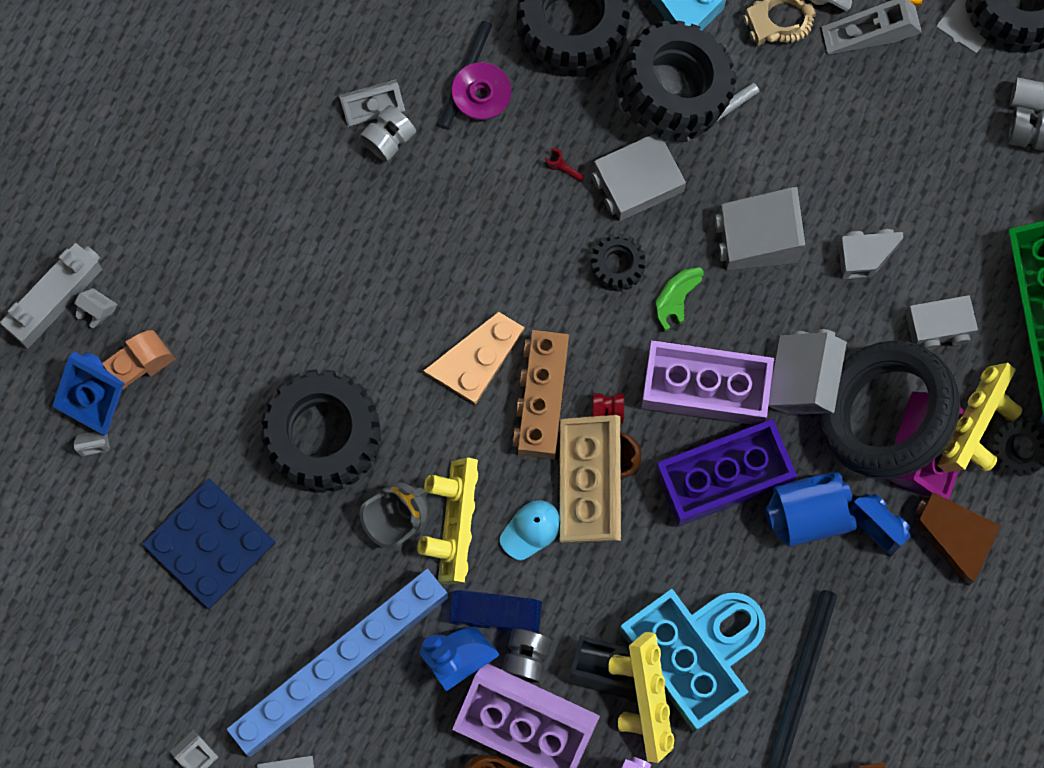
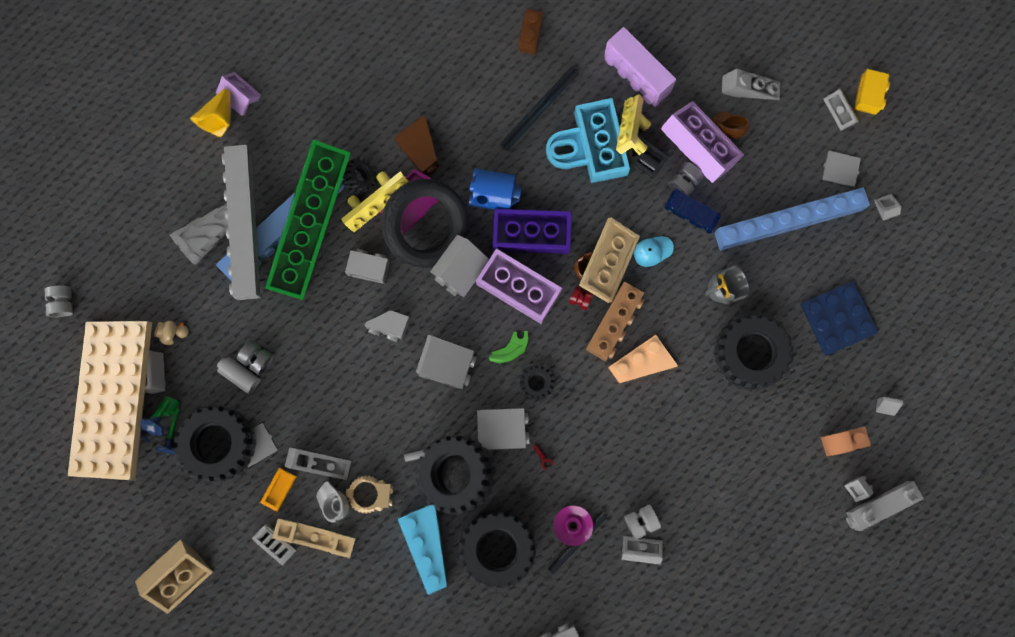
camera: 155 degrees left, 5 degrees up
(88, 392) = (883, 432): blue slope -> none
(456, 655) = (725, 192): blue slope -> none
(459, 509) = (697, 261): light yellow plate -> none
(879, 523) = (457, 165): blue slope -> none

